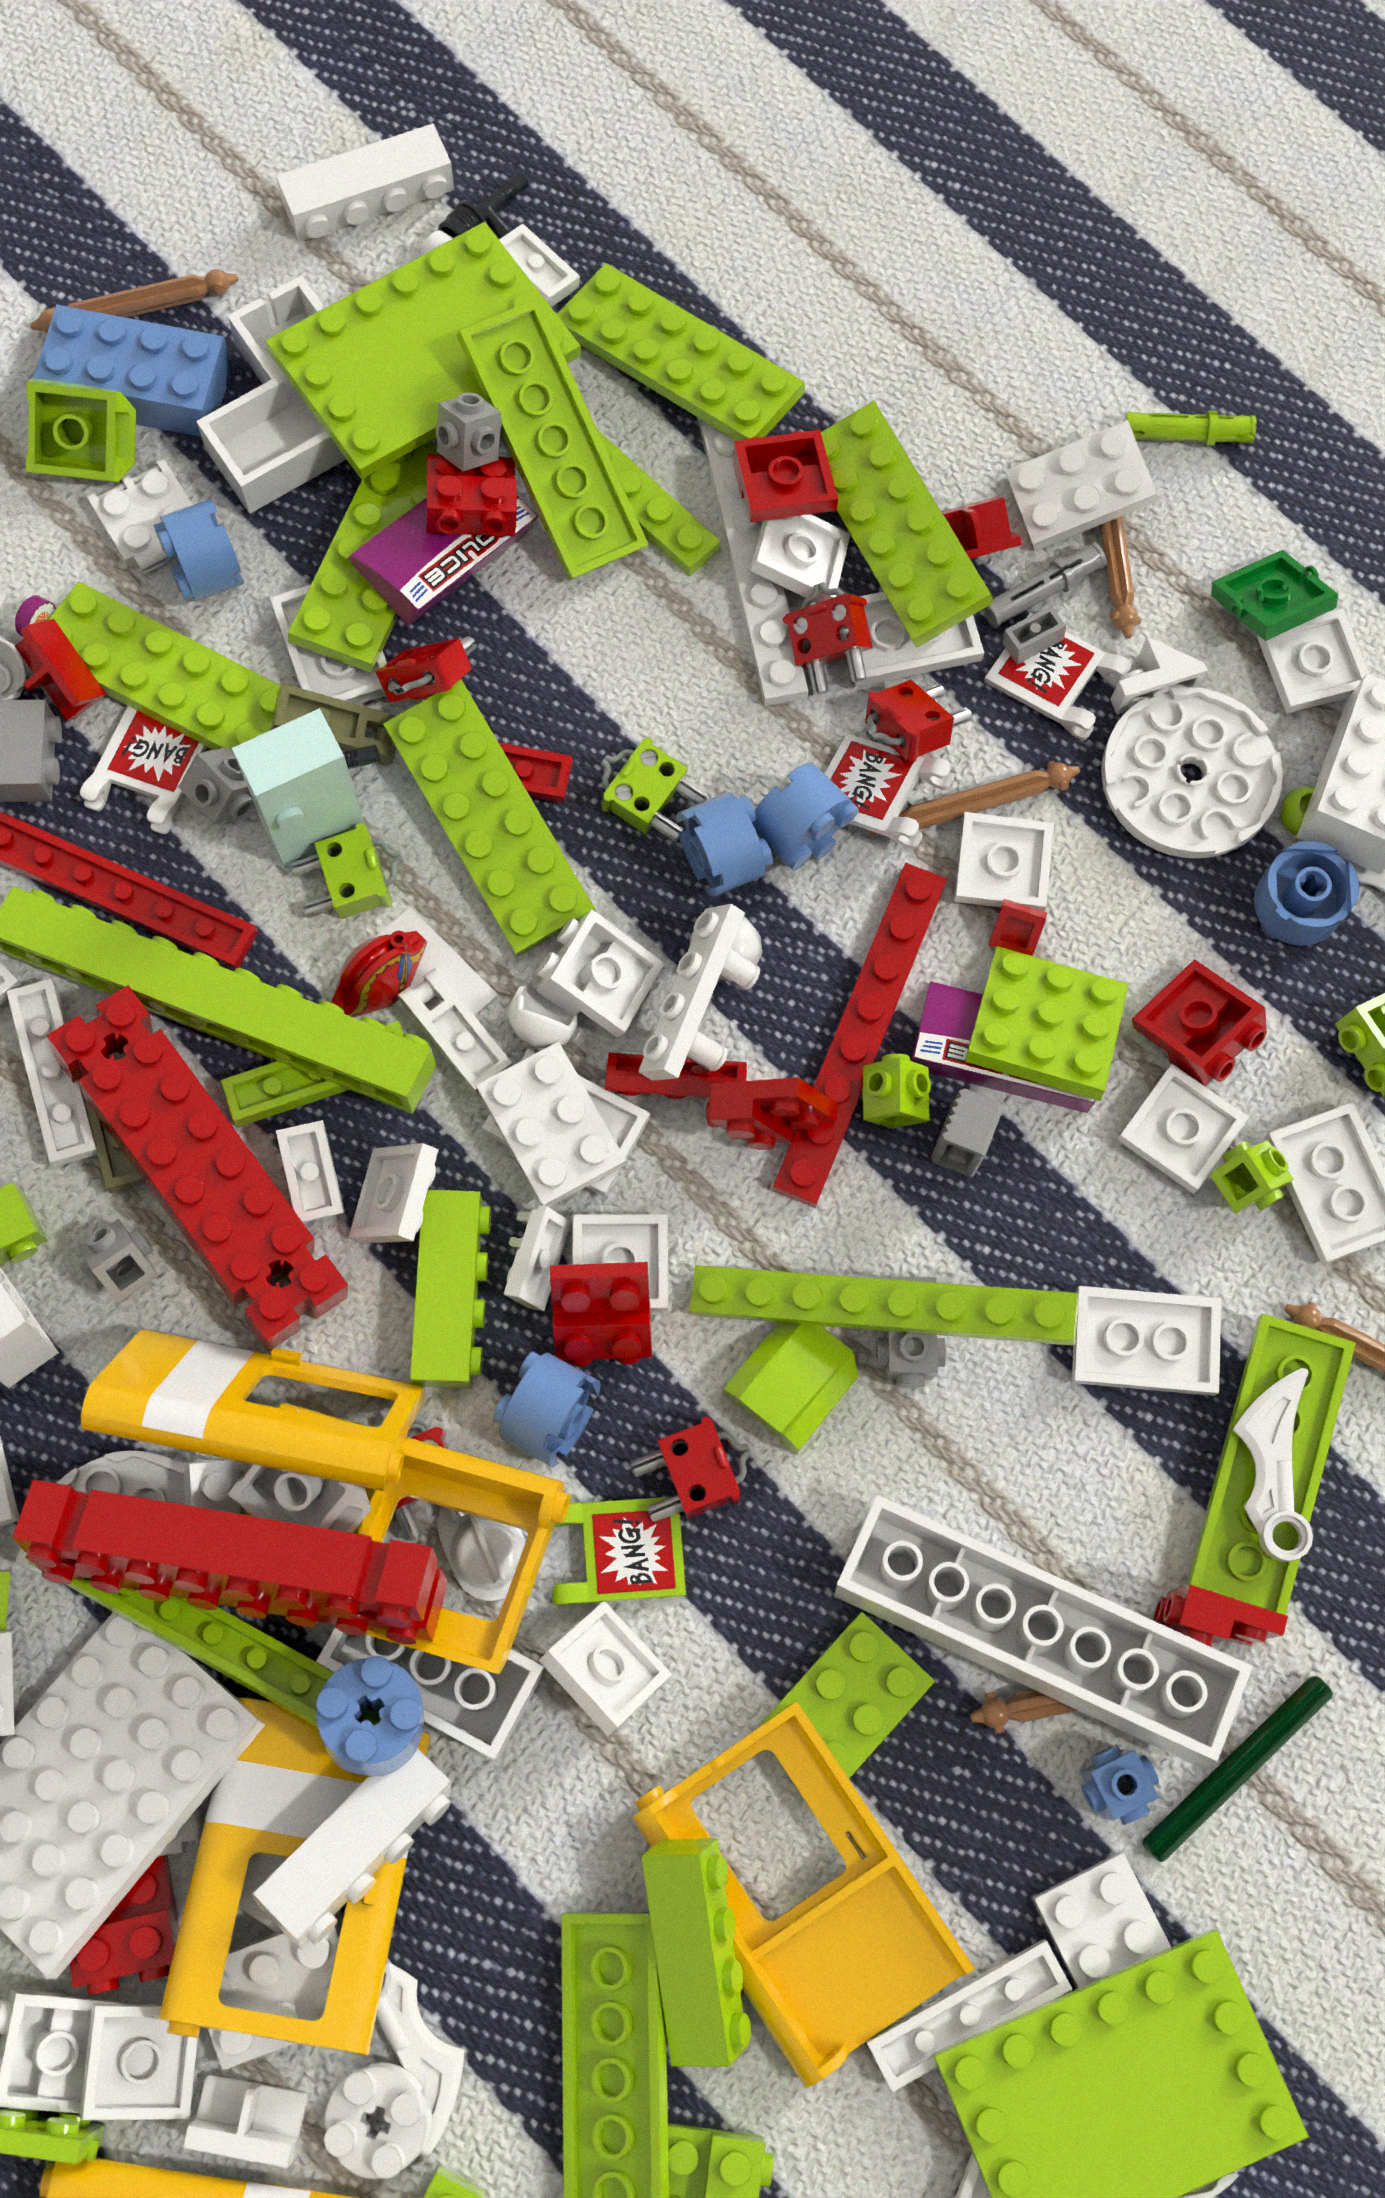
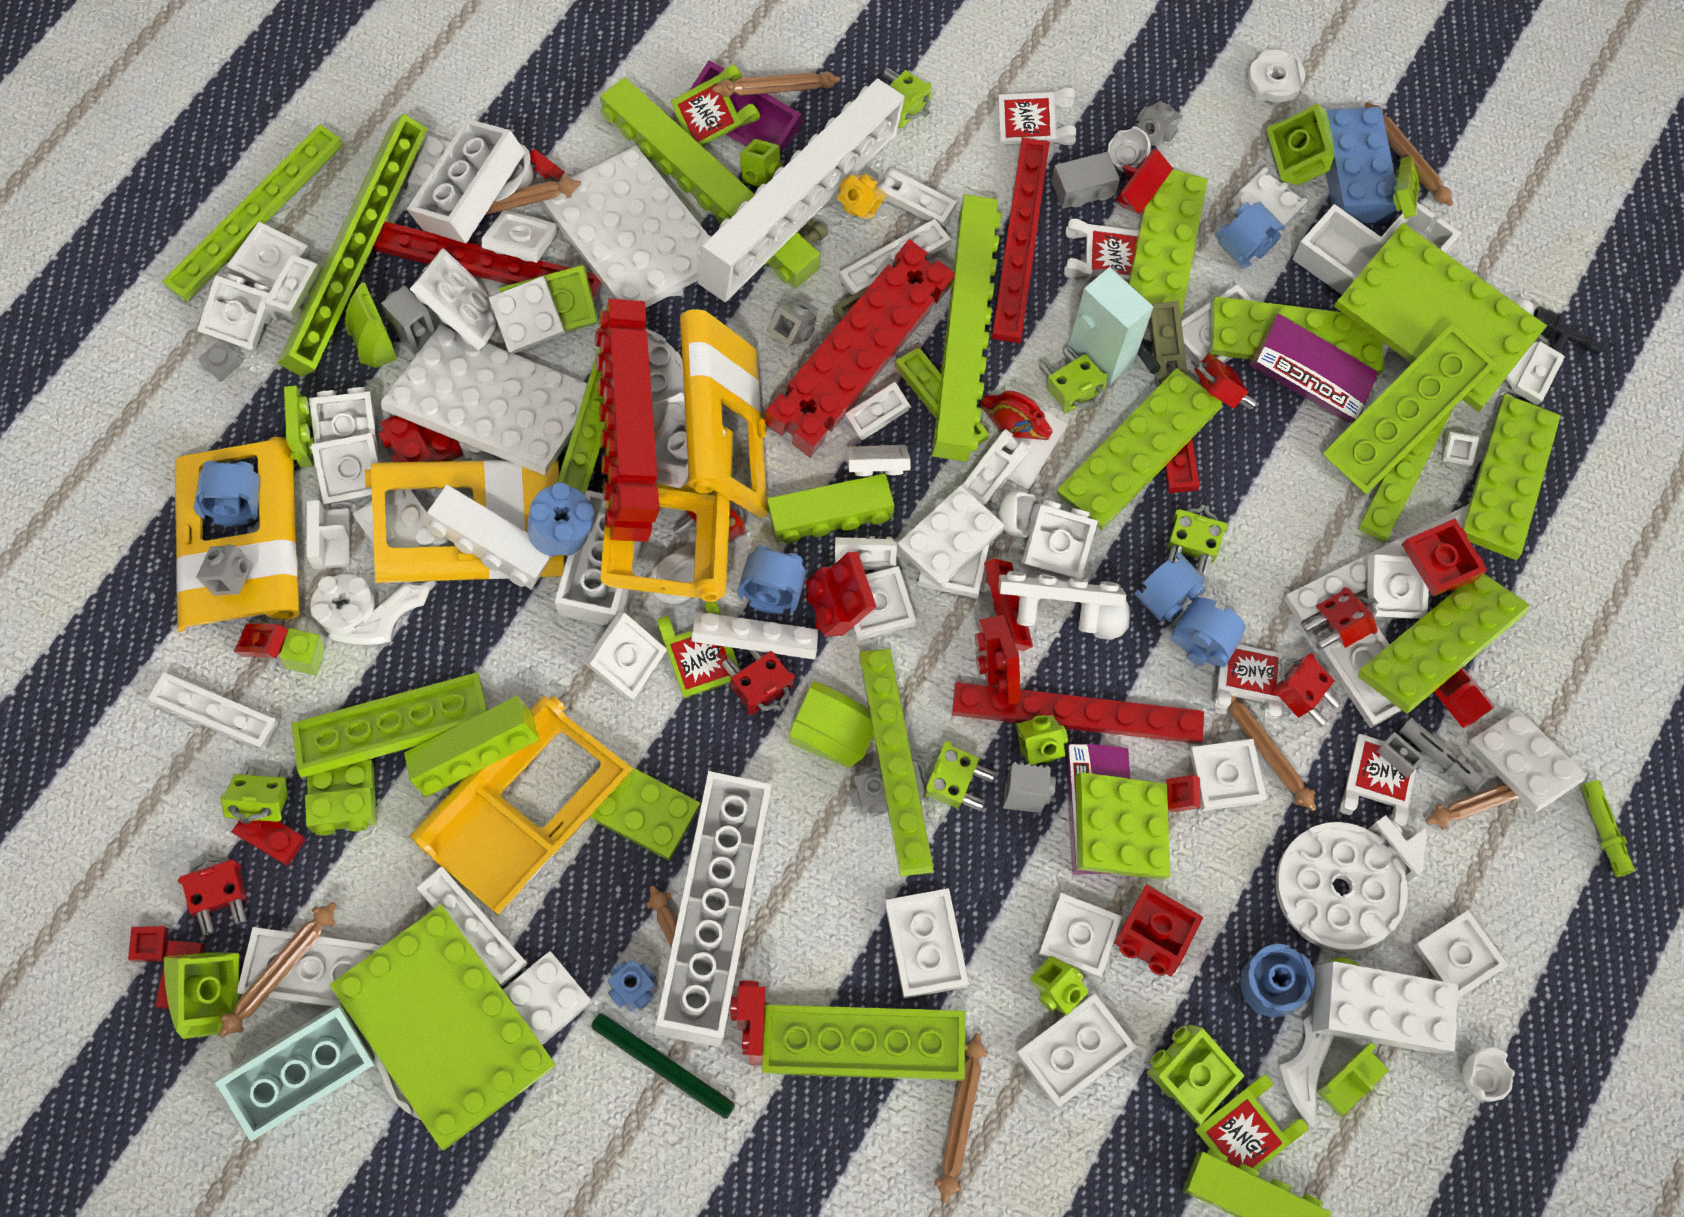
camera: 75 degrees right, 5 degrees down
(33, 610) = (1177, 160): magenta tile -> none
(206, 316) = (1406, 187): none -> lime plate
(366, 182) = (1551, 257): white brick -> none
(468, 431) = (1389, 353): light grey brick -> none
(471, 500) = (1349, 371): red plate -> none
(612, 404) = (1459, 448): none -> white slope
(623, 1460) = (754, 635): none -> white plate
(910, 1236) = (951, 775): none -> lime piece
(1268, 1435) = (882, 1031): white piece -> none
(1274, 594) = (1497, 912): green plate -> none

